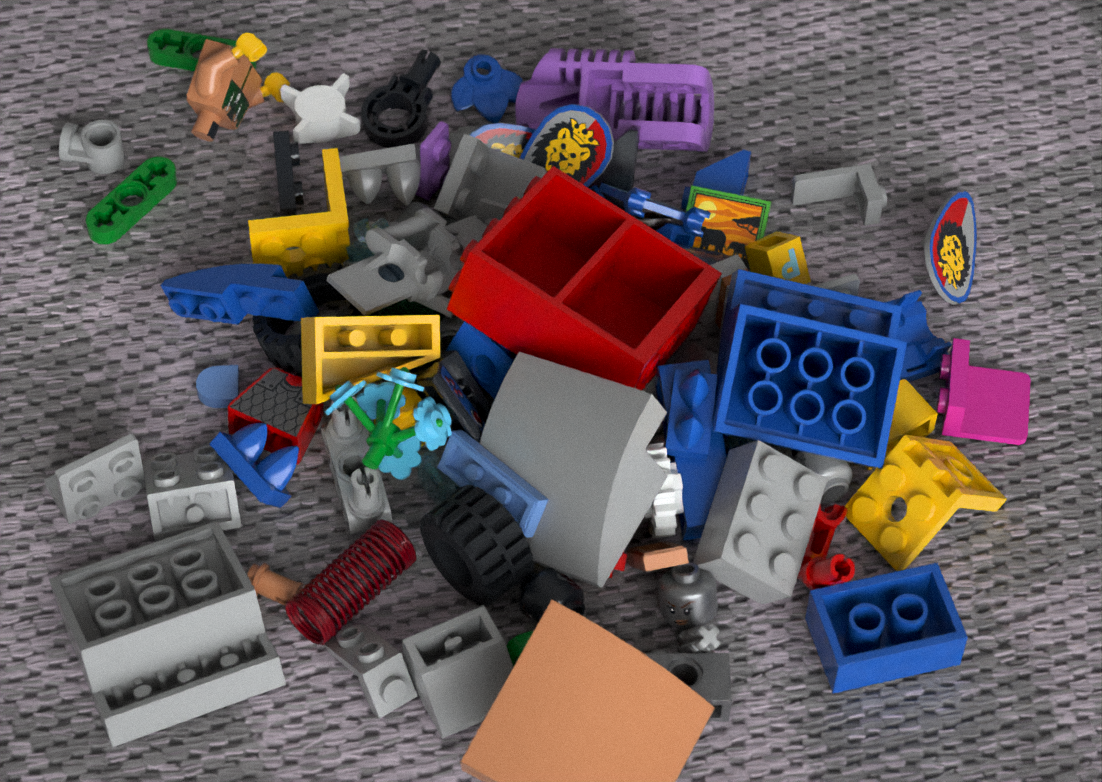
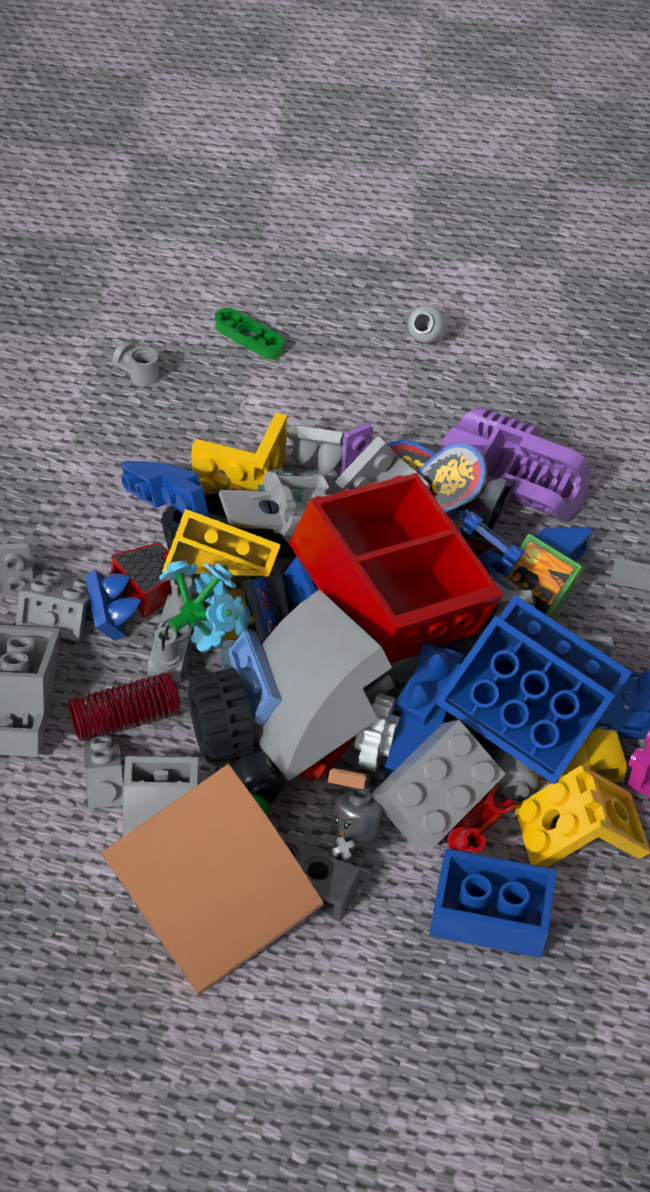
camera: 25 degrees right, 5 degrees down
(135, 184) = (168, 397): green beam -> none
(218, 385) = (123, 541): medium blue tile -> none
(229, 85) = (245, 355): nougat torso -> none
(272, 584) = (67, 682): nougat pin -> none
(287, 157) = (252, 423): black wing -> none
(321, 112) = (301, 395): white piece -> none
(407, 94) = (368, 404): black pin -> none
(485, 92) = (428, 426): blue plate -> none
(779, 257) = (569, 610): yellow brick -> none

